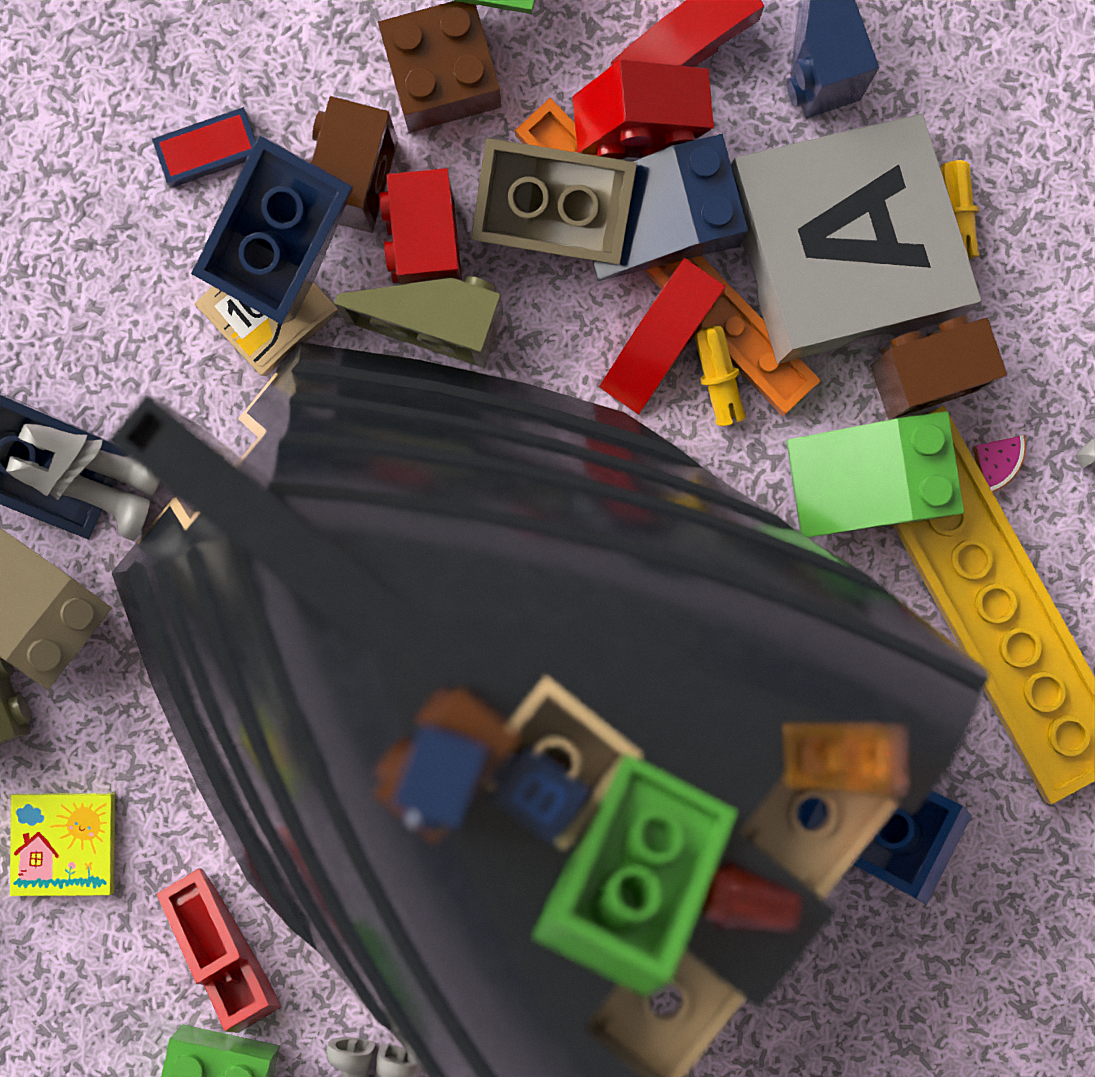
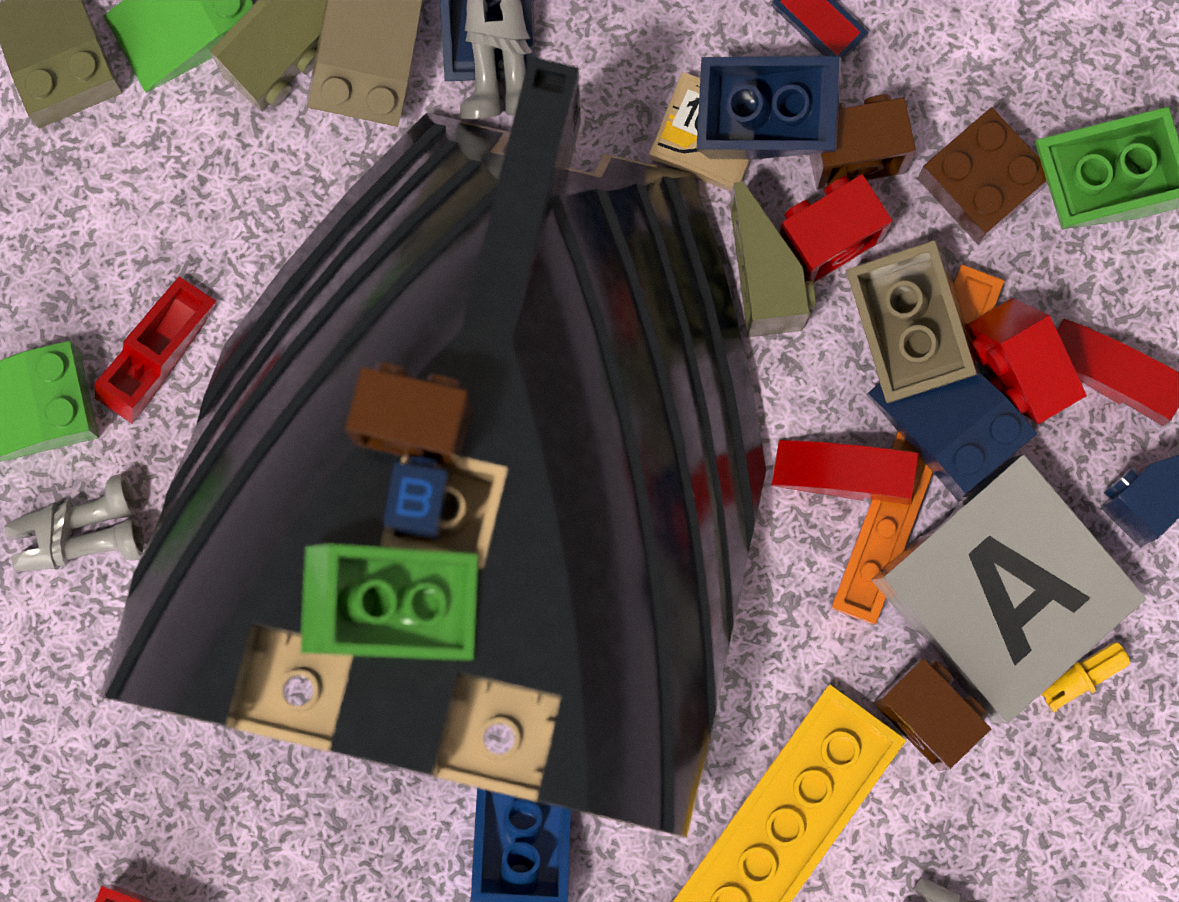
camera: 65 degrees right, 5 degrees down
(62, 844) = (183, 181): neon yellow tile -> none
(438, 777) = (396, 405): dark blue brick -> none
(719, 375) = (837, 535): yellow axle -> none
(748, 902) = (407, 697): clear red cone -> none
(846, 757) = (553, 717): clear orange slope -> none
(875, 475) = (813, 703): slope -> none
(1000, 460) = (883, 814): dark pink tile -> none

